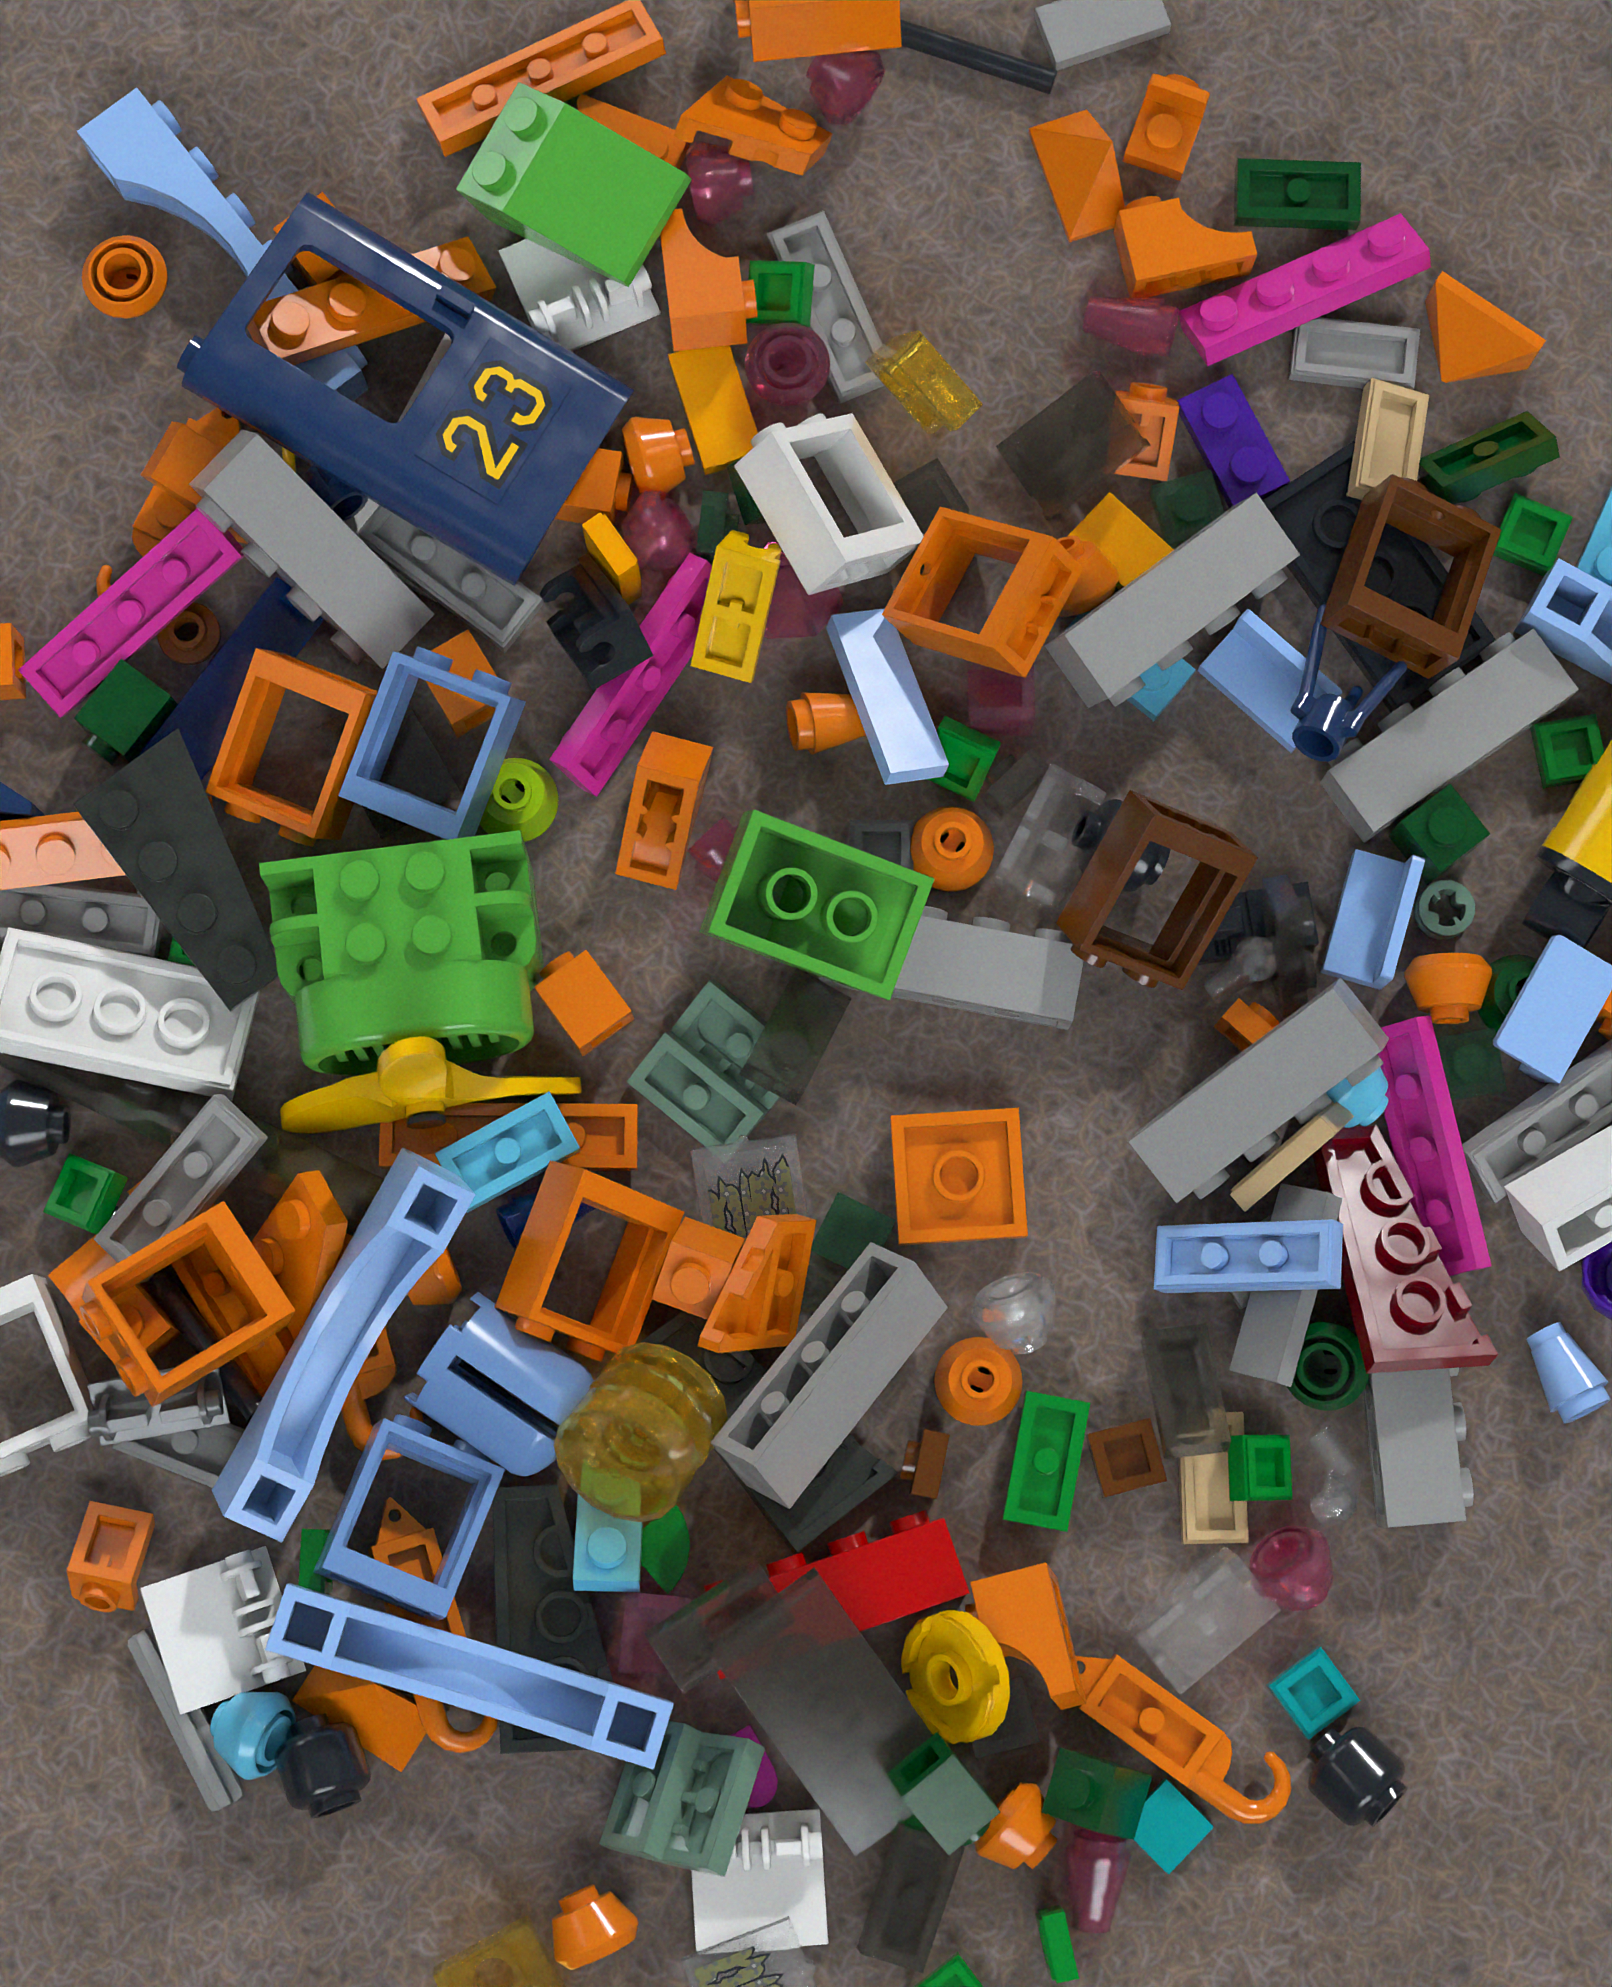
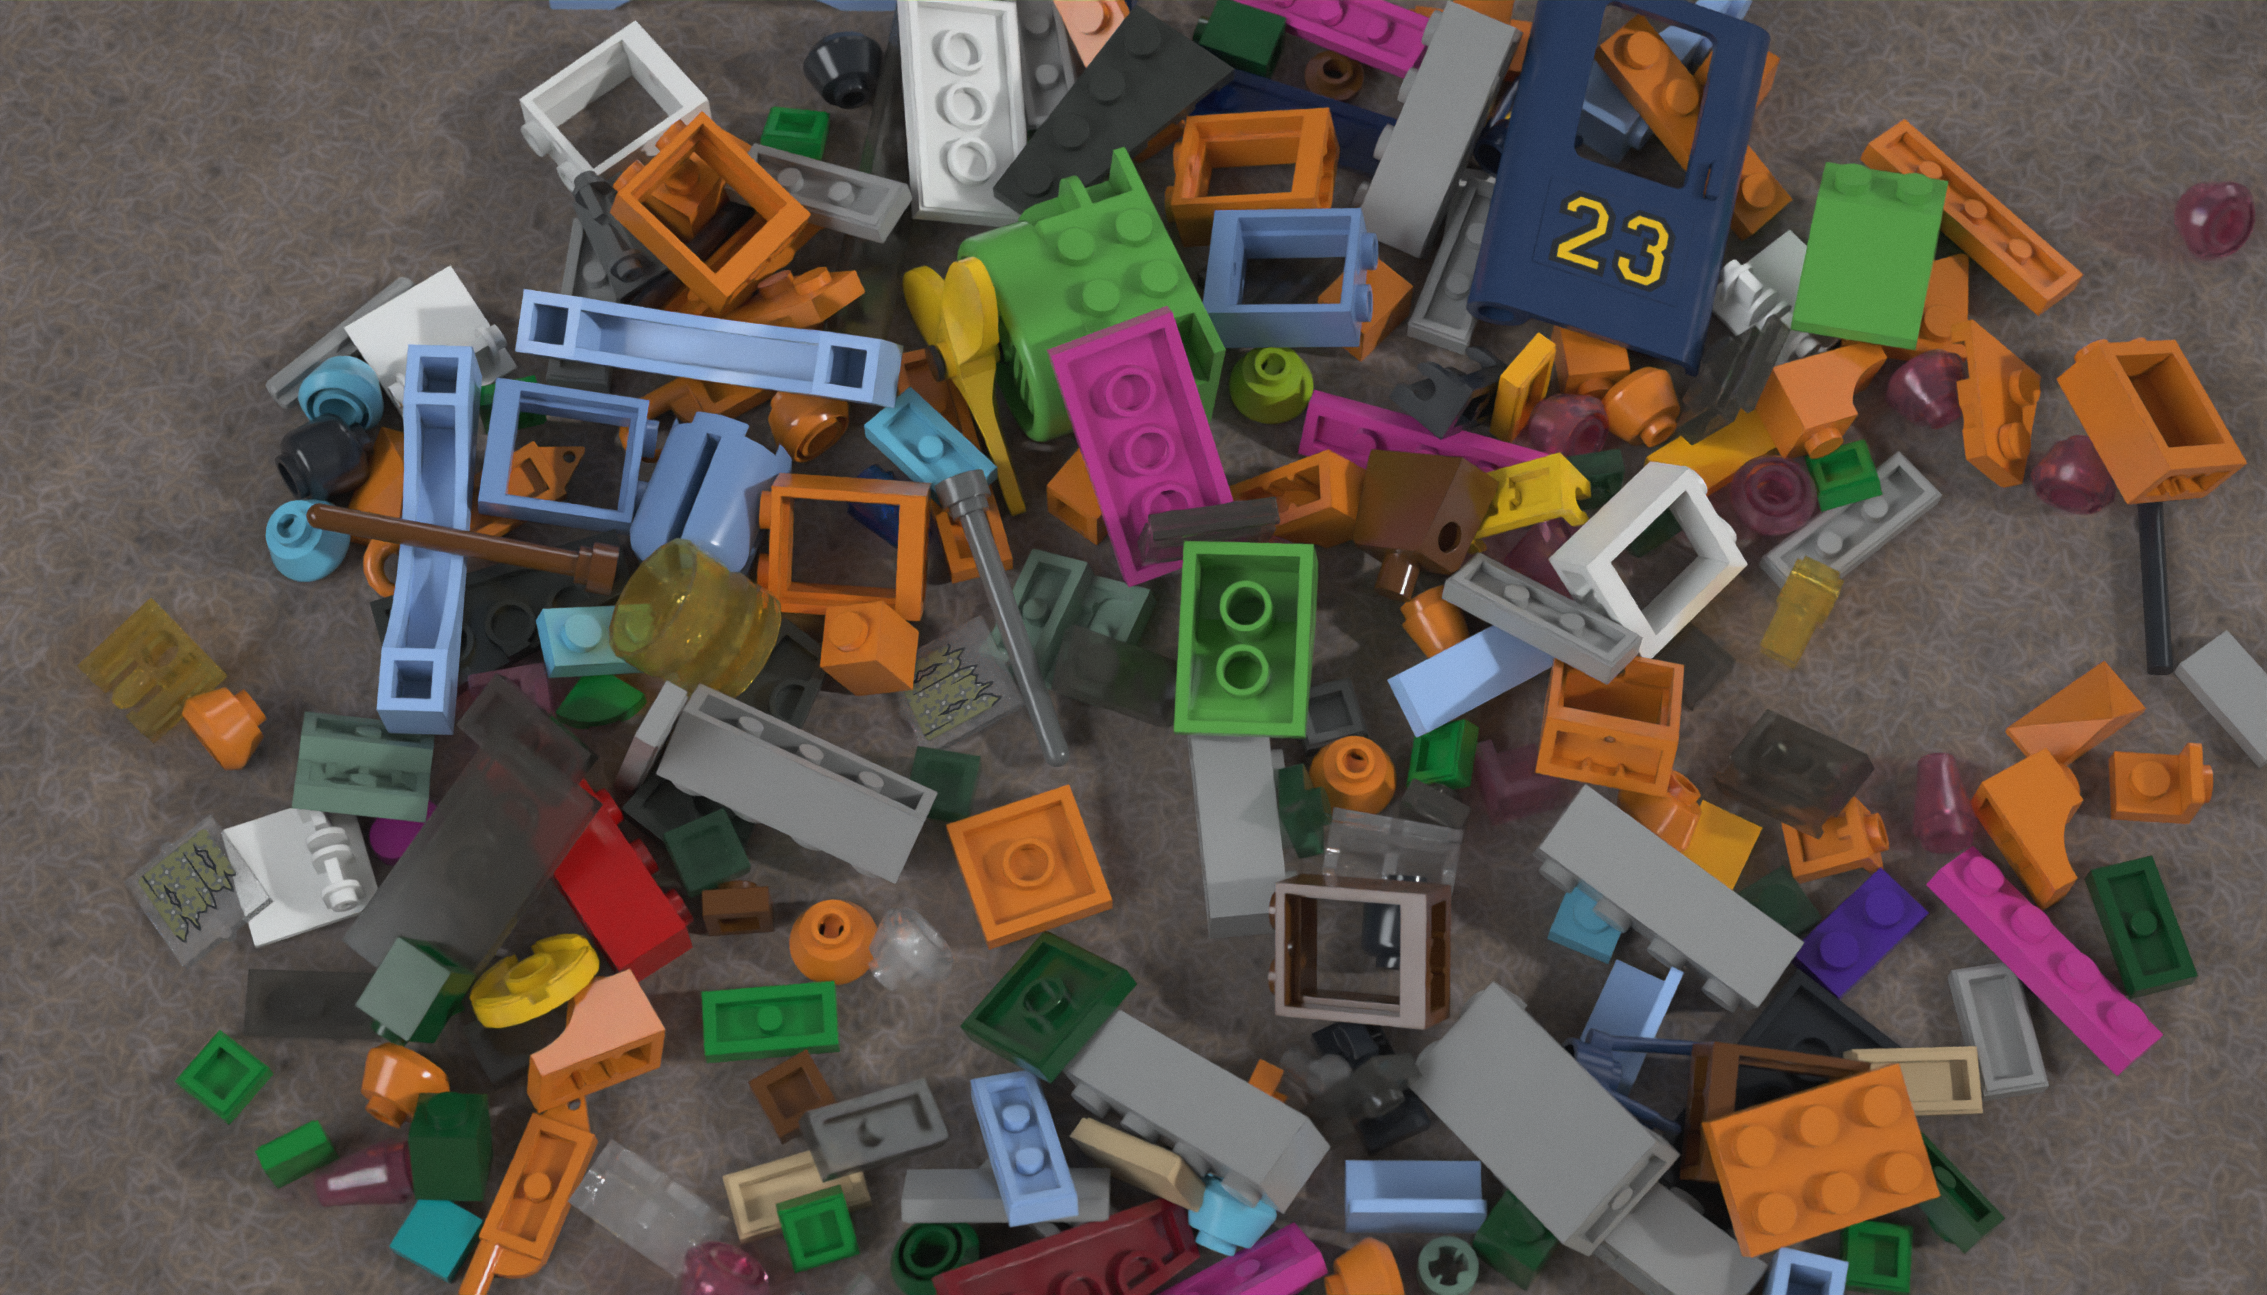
camera: 75 degrees right, 15 degrees down
(109, 1557) = (475, 238): orange bracket -> none
(396, 1789) = (300, 549): none -> medium azure cone
(538, 1518) = (589, 566): none -> reddish brown piece
(587, 1130) = (966, 500): none -> dark grey piece
(588, 937) = (1139, 429): none -> dark pink plate
(662, 359) = (1731, 379): none -> clear smoke plate
(693, 883) = (1234, 521): none -> clear smoke plate
(725, 703) = (1419, 515): none -> reddish brown torso
(754, 1504) = (651, 738): none -> light grey tile
(764, 1287) = (866, 704): orange wing -> none
(861, 620) = (1542, 618): none -> light grey tile
(870, 1479) = (706, 852): none -> clear green plate
(986, 903) = (1303, 810): none -> clear green plate
(1110, 1196) = (1048, 1005): none -> dark green tile
(1355, 786) = (1540, 1120): none -> light grey panel
(1468, 549) = (1820, 1160): none -> orange plate
(1474, 335) = (2060, 1142): orange slope -> none

